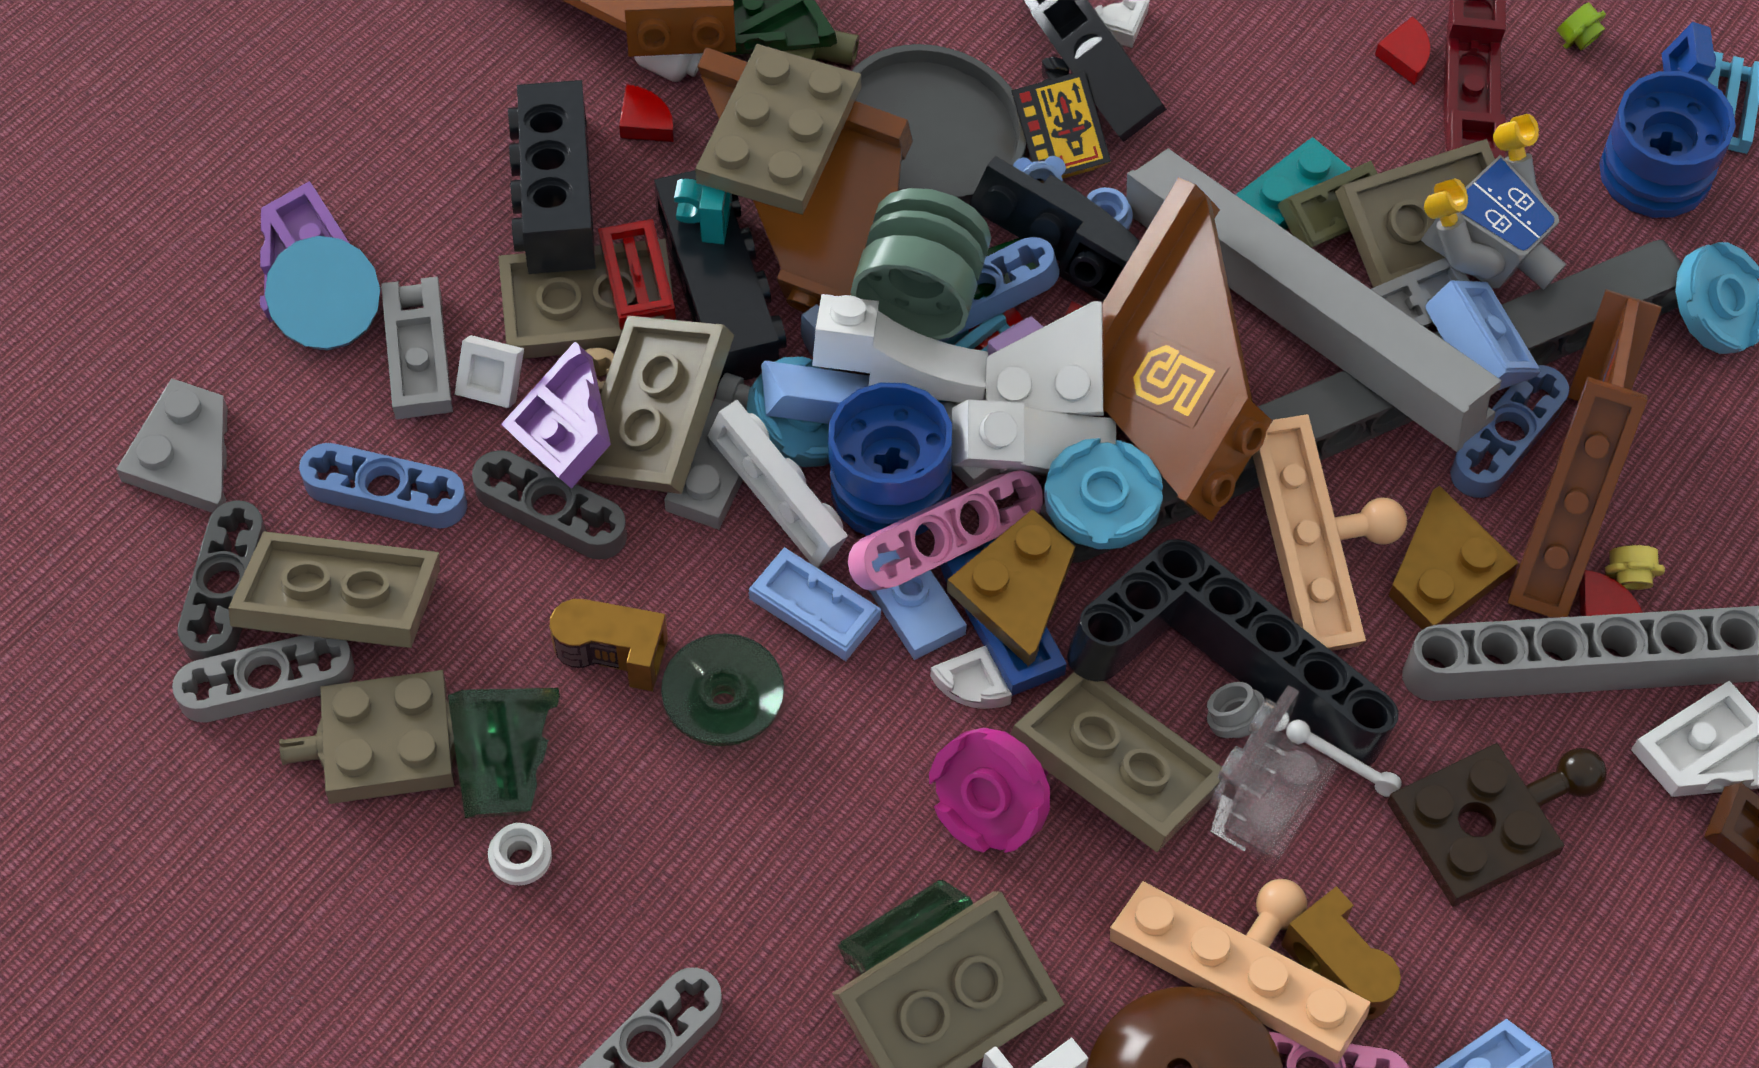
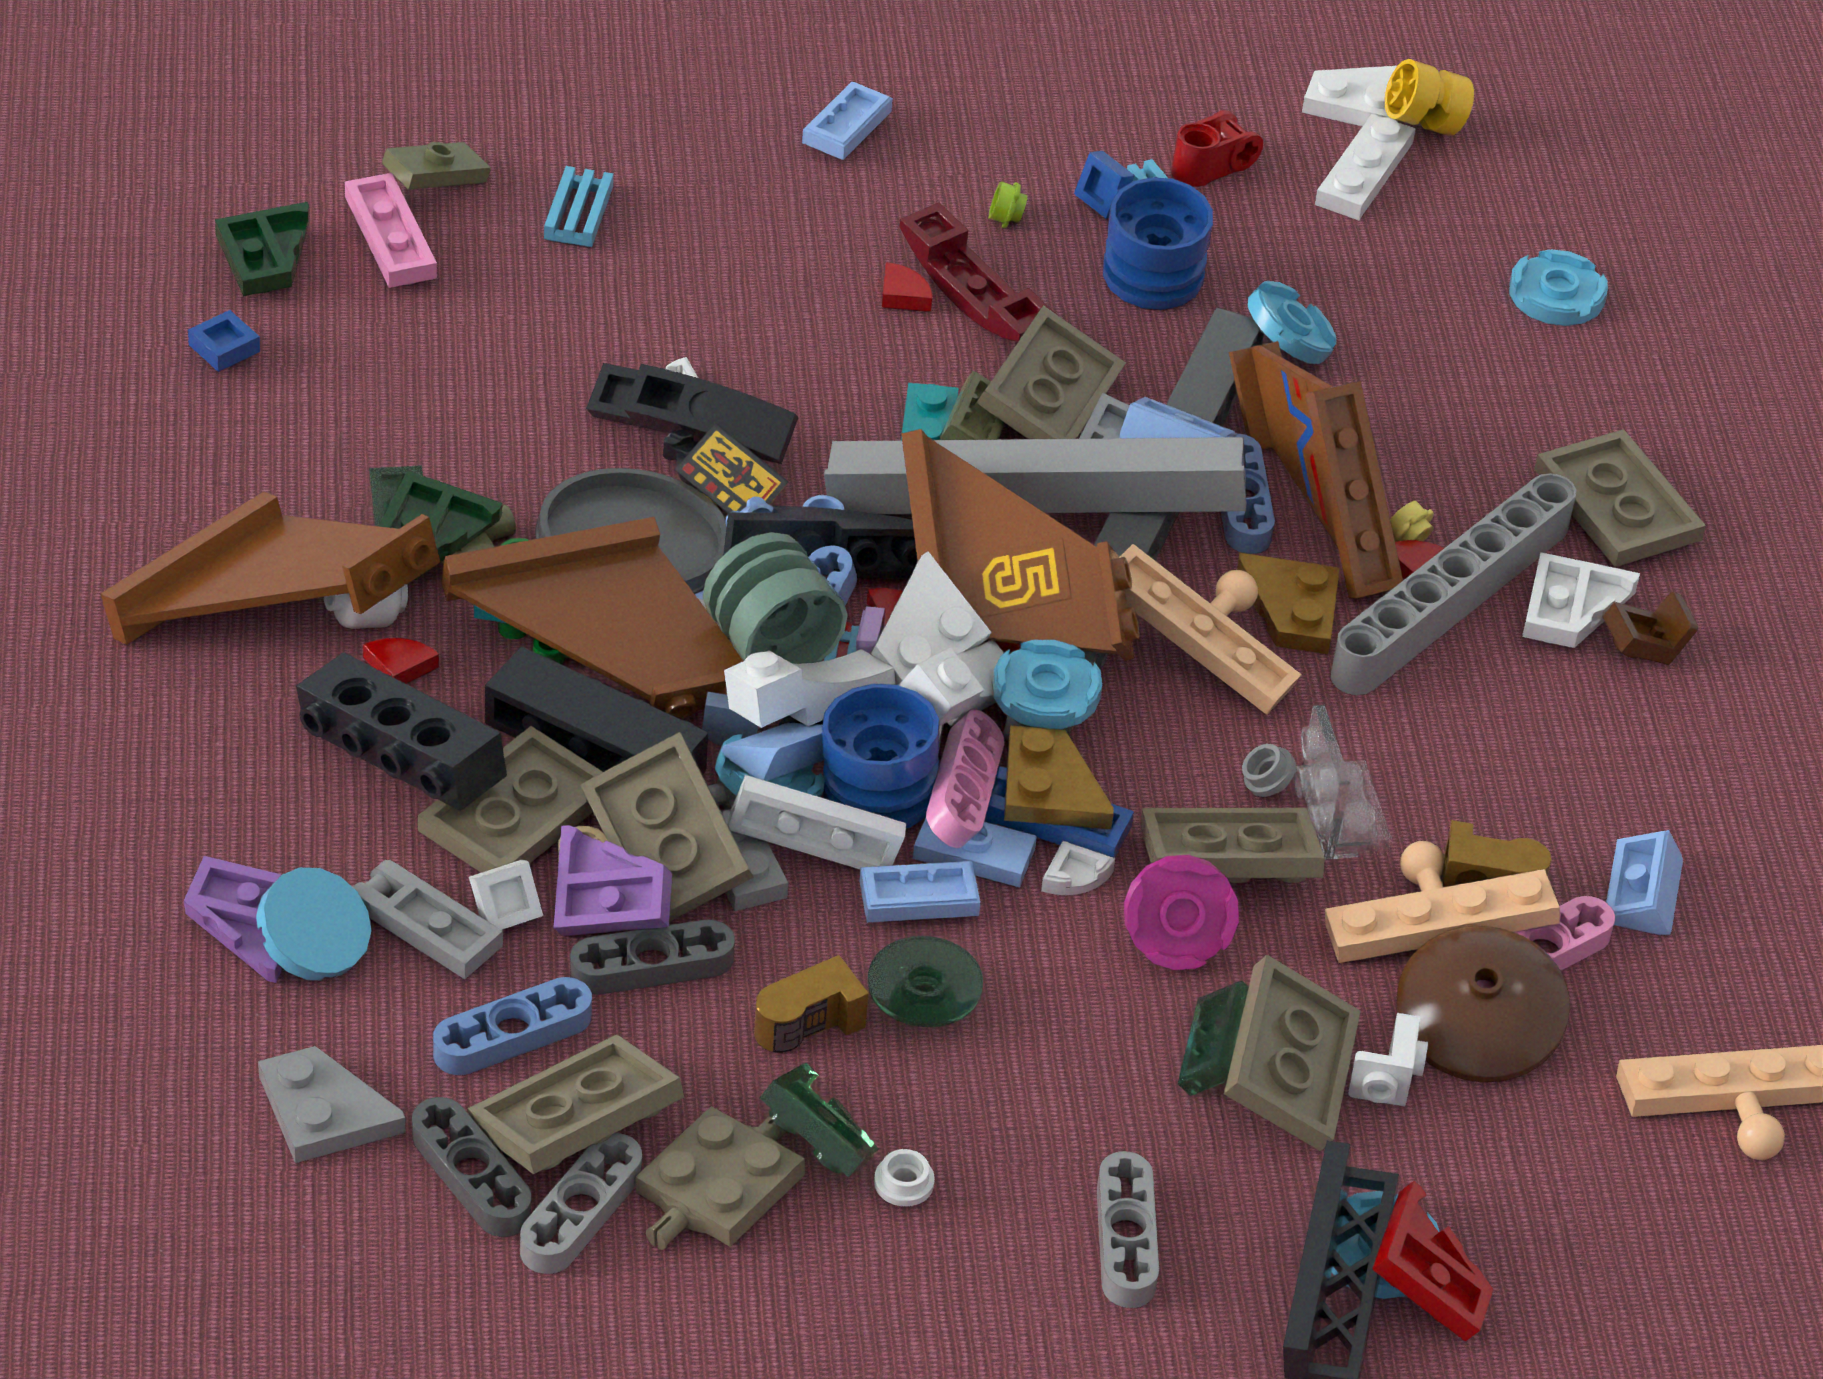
camera: 45 degrees left, 15 degrees down
(643, 308) = (538, 762): red tile -> none
(703, 205) = (562, 666): teal tile -> none
(778, 129) = (574, 574): dark tan plate -> none
(1241, 633) = (1227, 719): black beam -> none
(1385, 782) = (1403, 753): white hinge -> none
(1493, 788) = (1471, 712): dark brown plate -> none
(1498, 217) = (1114, 351): torso -> none

